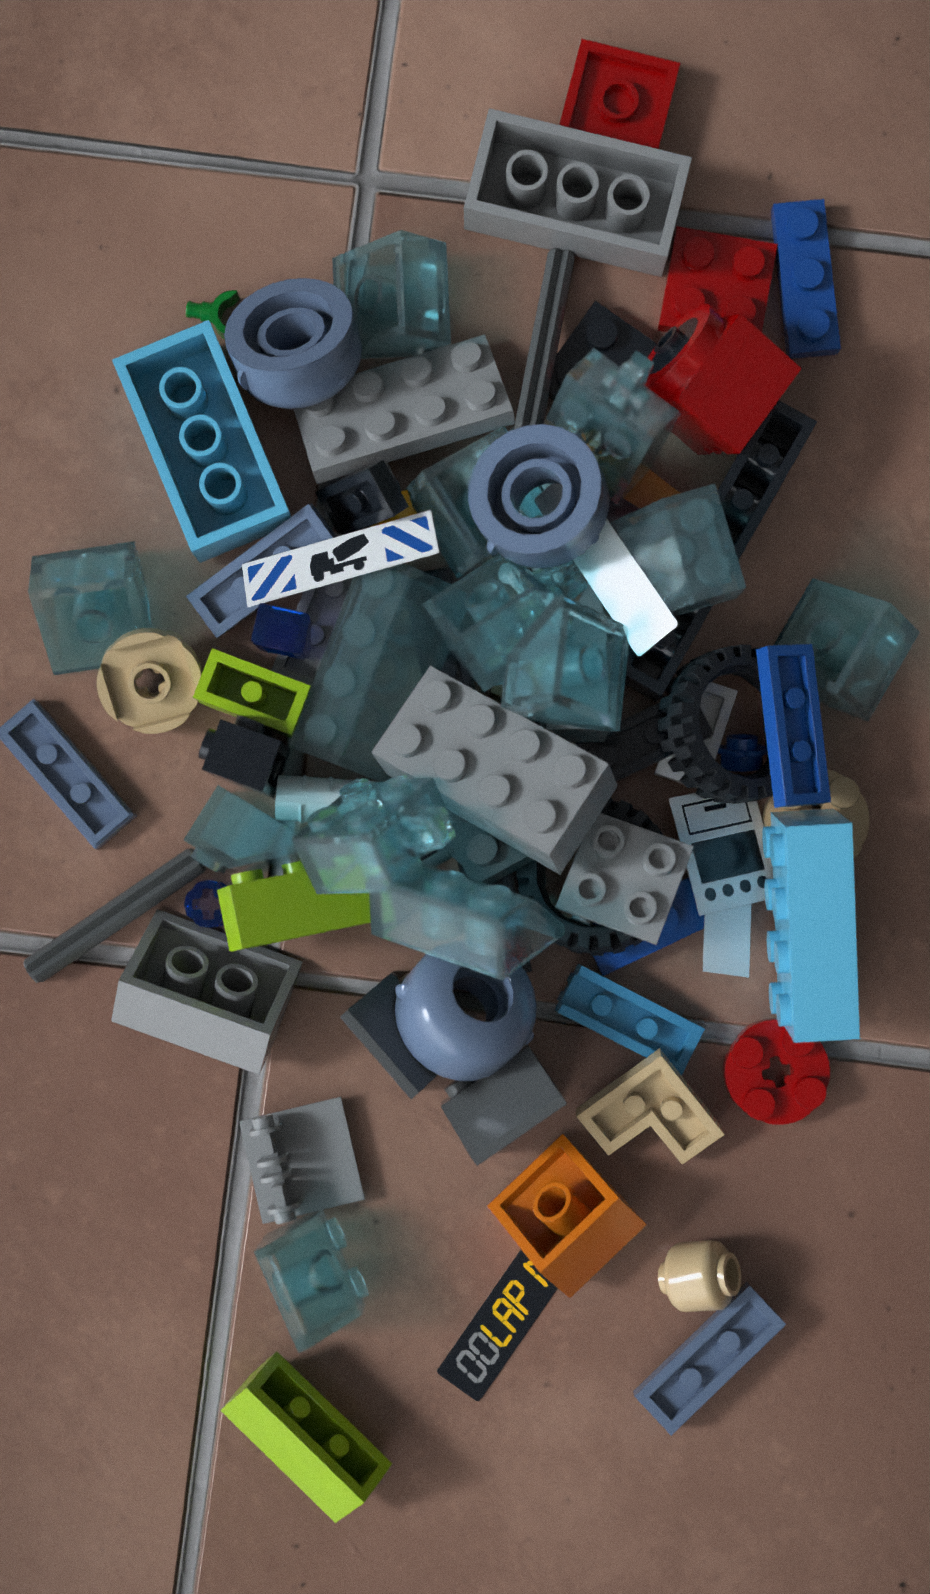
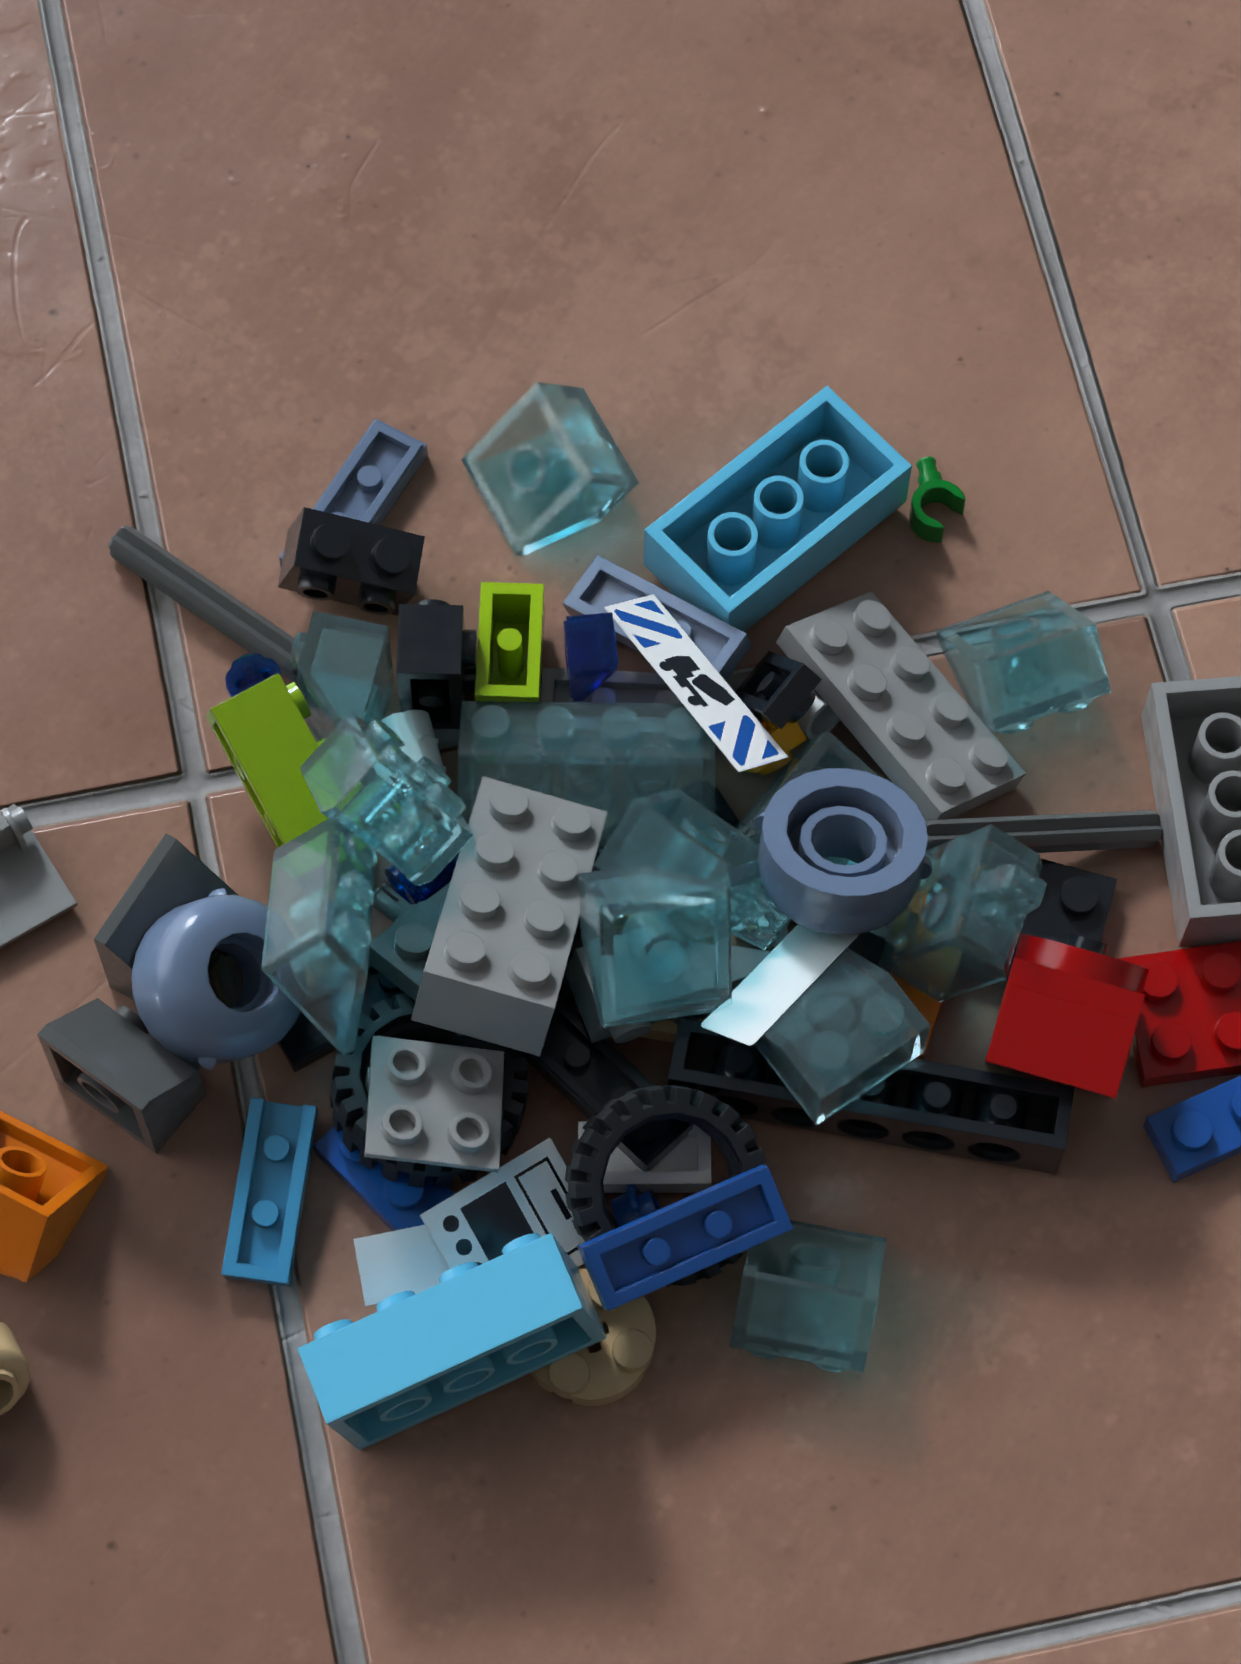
camera: 65 degrees right, 20 degrees down
(129, 794) = (351, 562): none -> black brick
(134, 705) = (494, 513): tan plate -> none
(201, 995) = (145, 719): light grey slope -> none
(294, 343) = (923, 564): sand blue piece -> none
(654, 1097) = (184, 1253): tan plate -> none
(759, 1097) = (224, 1377): red plate -> none

